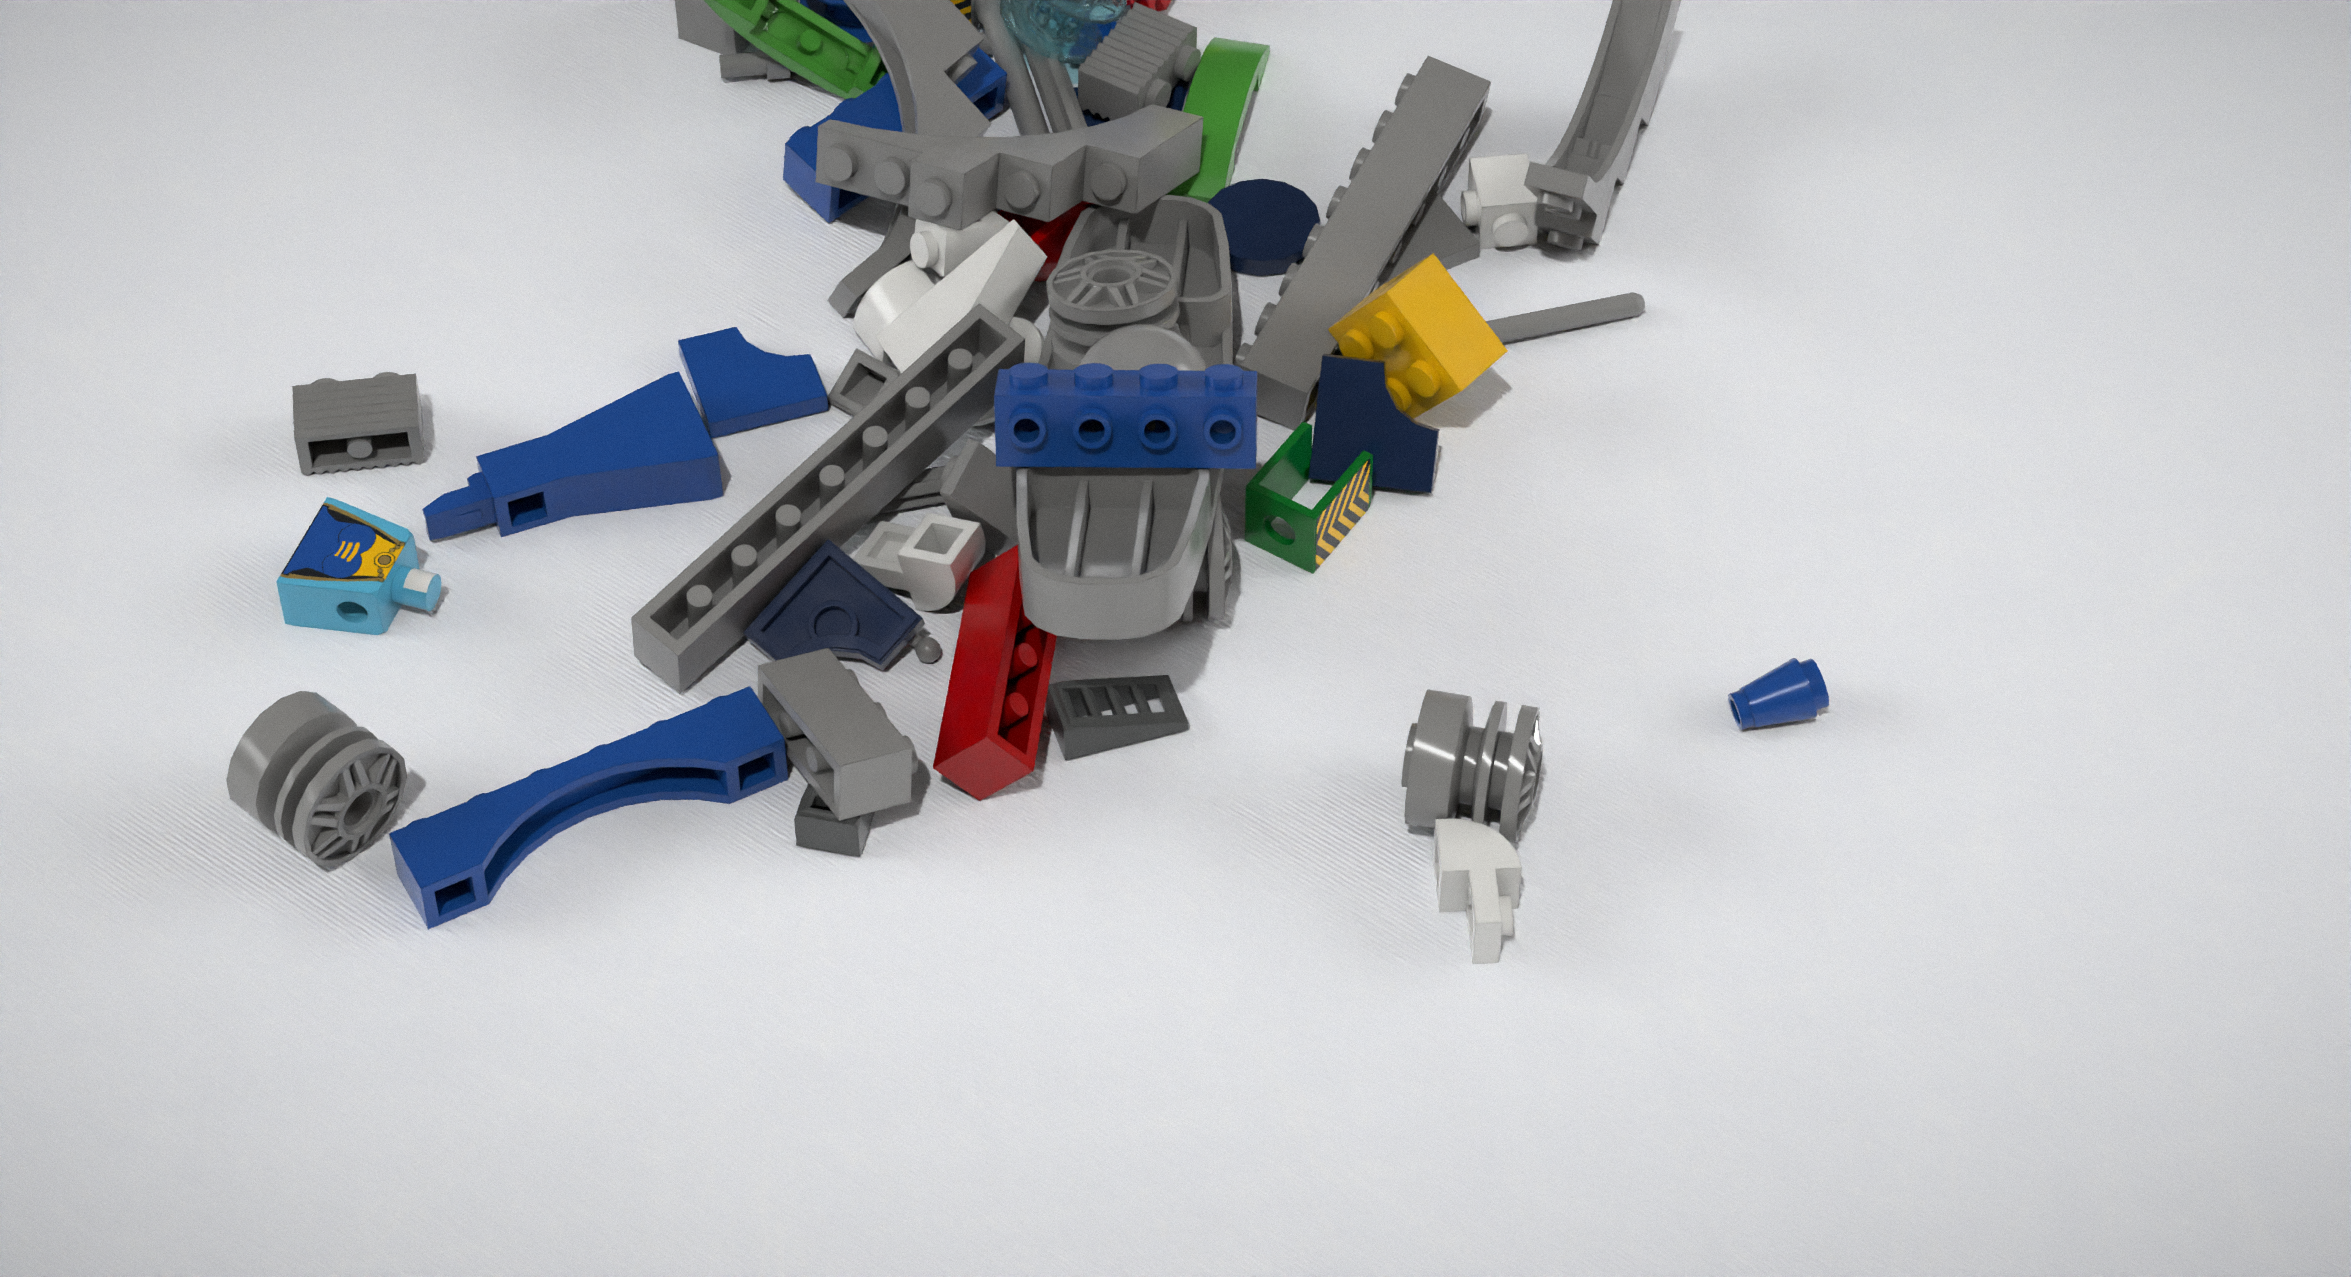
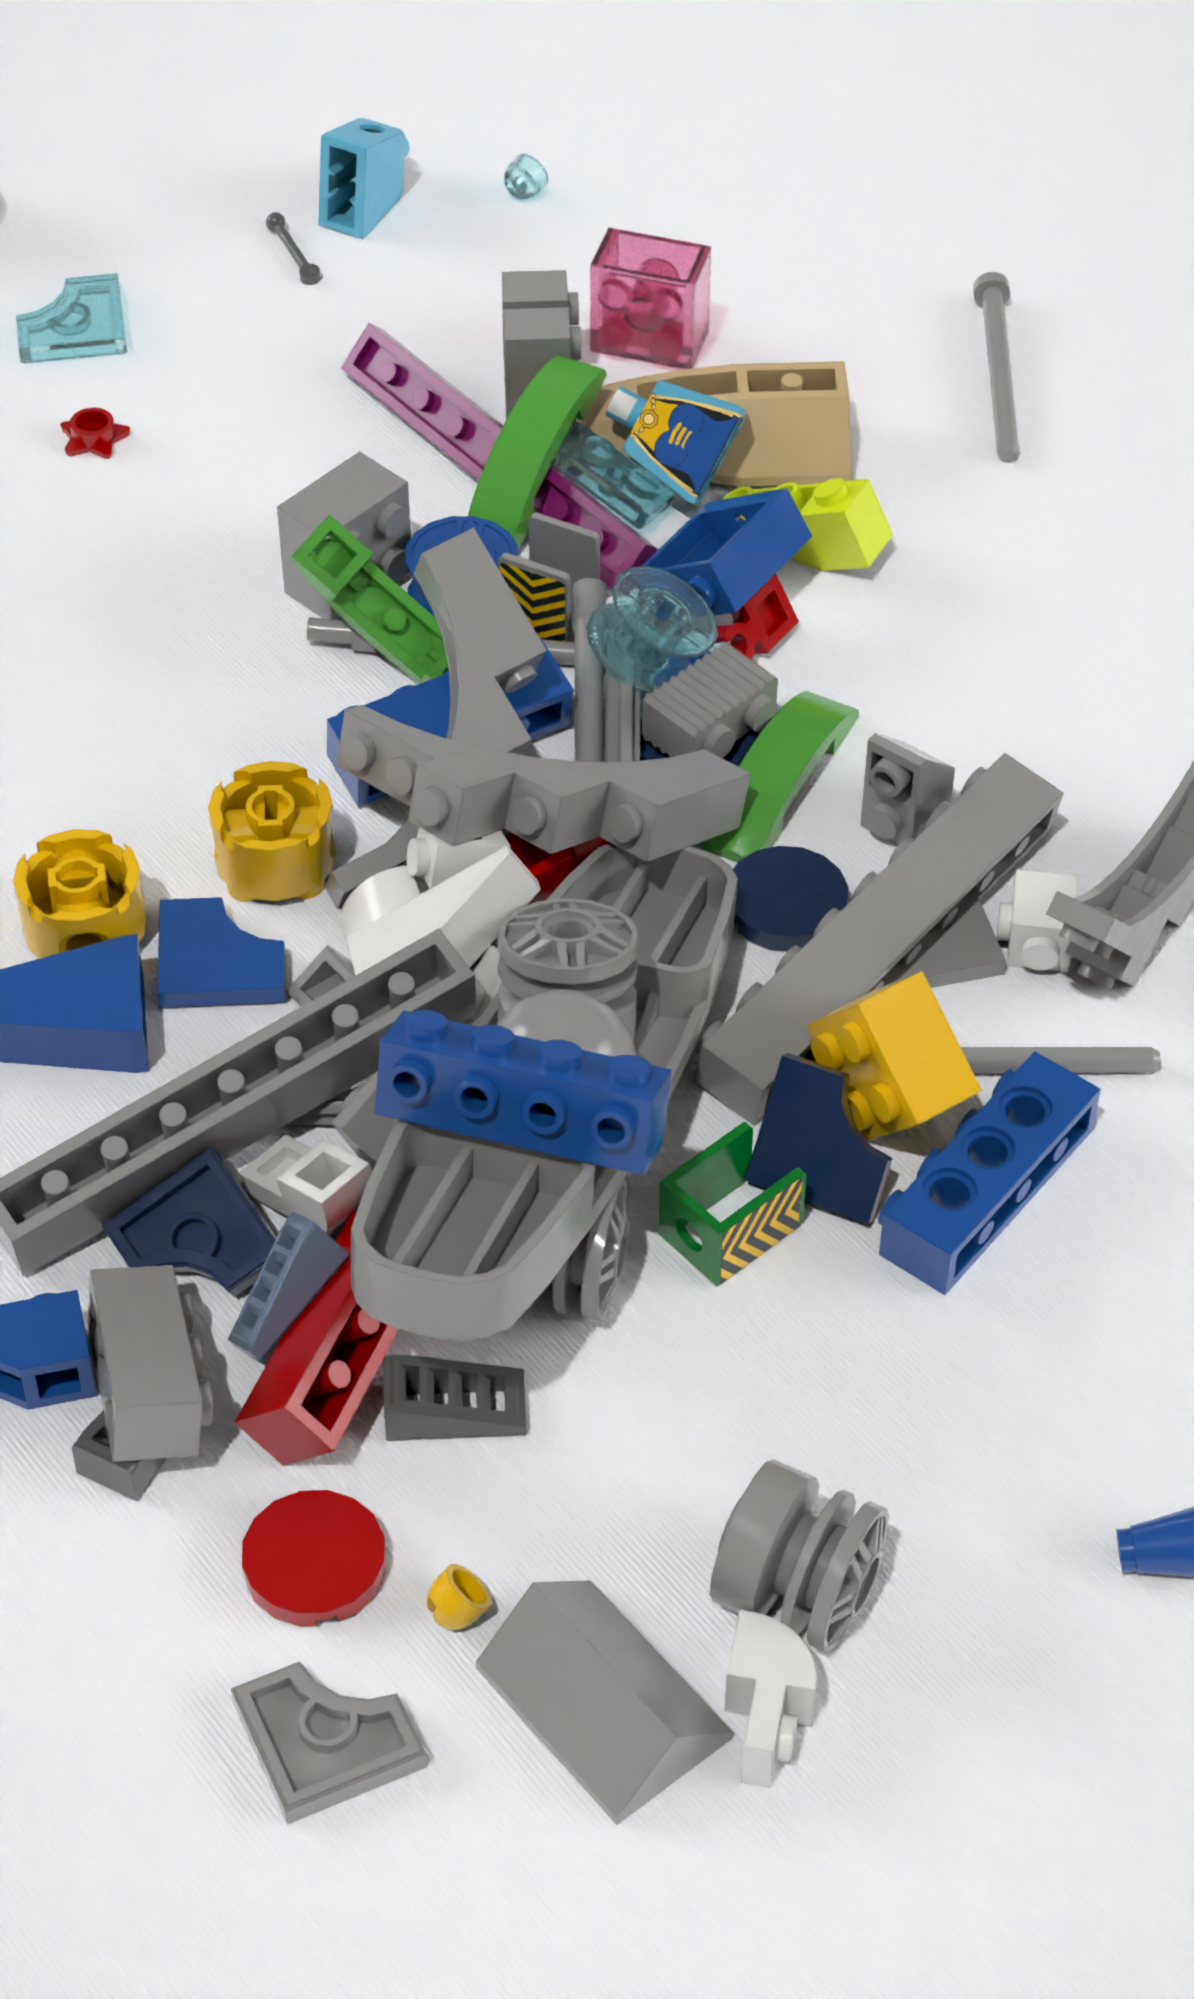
camera: 15 degrees right, 0 degrees up
(605, 346) = (78, 892): none -> yellow brick
(767, 258) = (272, 833): none -> yellow brick
(936, 643) = (290, 1279): none -> sand blue slope
(1039, 866) = (313, 1557): none -> red tile
(1103, 1012) = (321, 1743): none -> light grey tile
(1180, 871) = (457, 1598): none -> yellow hinge
(1328, 921) = (599, 1695): none -> light grey slope
(1341, 109) = (902, 788): none -> light grey slope
(1523, 425) = (987, 1171): none -> blue brick

